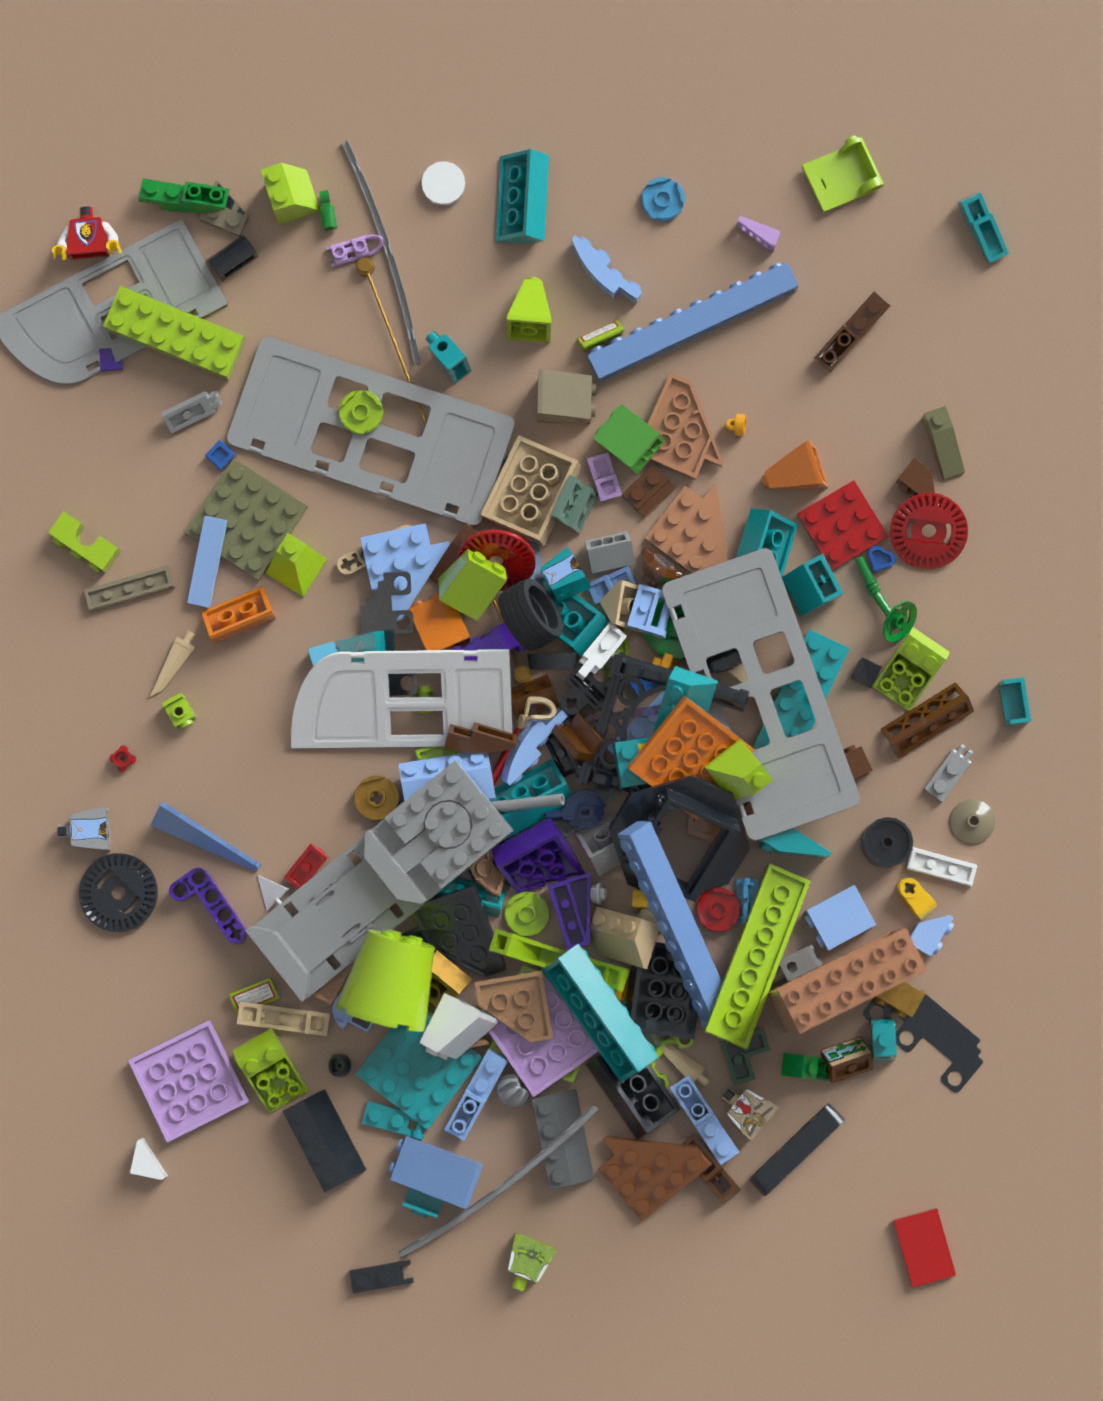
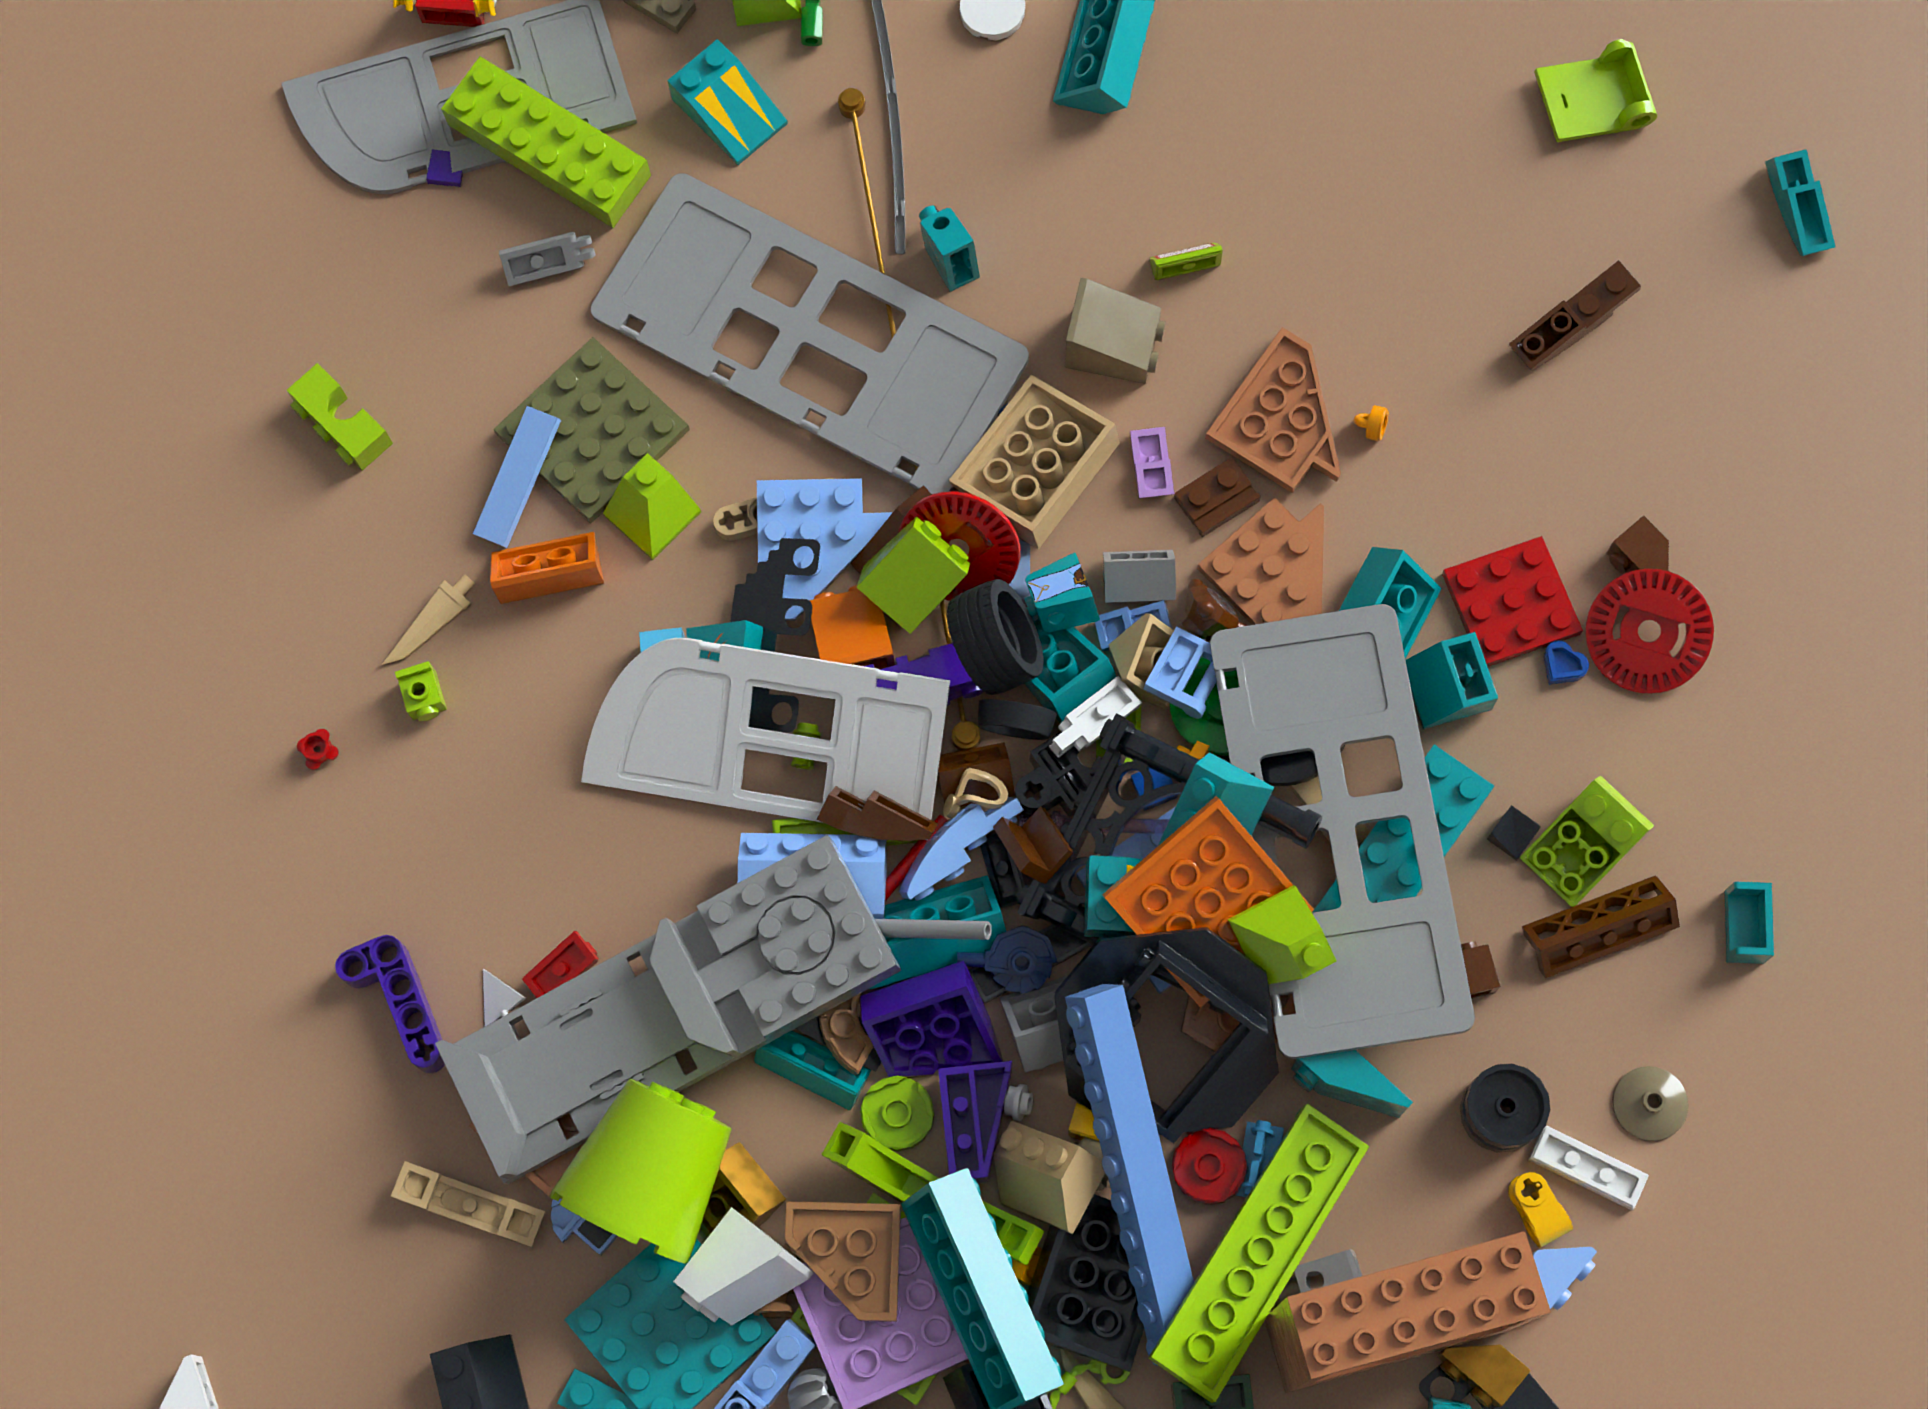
camera: 15 degrees right, 10 degrees down
(88, 829) = (236, 845): torso -> none
(103, 908) = (226, 967): black piece -> none
(128, 588) = (390, 498): dark tan tile -> none
(176, 824) = (376, 865): medium blue wedge -> none
(188, 1081) = (294, 1277): lavender plate -> none
(220, 455) = (574, 330): blue tile -> none
(232, 257) = (658, 57): black brick -> none
(259, 993) = (443, 1155): slope -> none
(270, 1070) = (428, 1286): lime slope -> none
(284, 282) = (726, 102): none -> teal slope
(339, 1065) = (542, 1299): black tile -> none
(359, 247) = (846, 71): lavender piece -> none
(361, 412) = (799, 301): lime tile -> none
(365, 792) = (682, 869): pearl gold plate -> none
(459, 930) = (783, 1117): black wing -> none
(529, 314) = (1082, 208): lime slope -> none
(574, 504) = (1097, 492): sand green slope -> none
(596, 266) = (1200, 161): light blue slope -> none
(629, 438) = (1201, 410): bright green brick -> none
(662, 199) = (1316, 84): dark azure tile -> none
(692, 322) = (1330, 261): medium blue brick -> none
(763, 234) = (1457, 153): lavender slope -> none
(796, 470) = (1453, 504): orange slope -> none
(839, 918) = (1406, 1218): light blue brick -> none
(894, 616) = (1572, 755): green dish -> none
(943, 442) = (1692, 503): olive slope -> none
(948, 773) = (1622, 1019): light grey hinge -> none

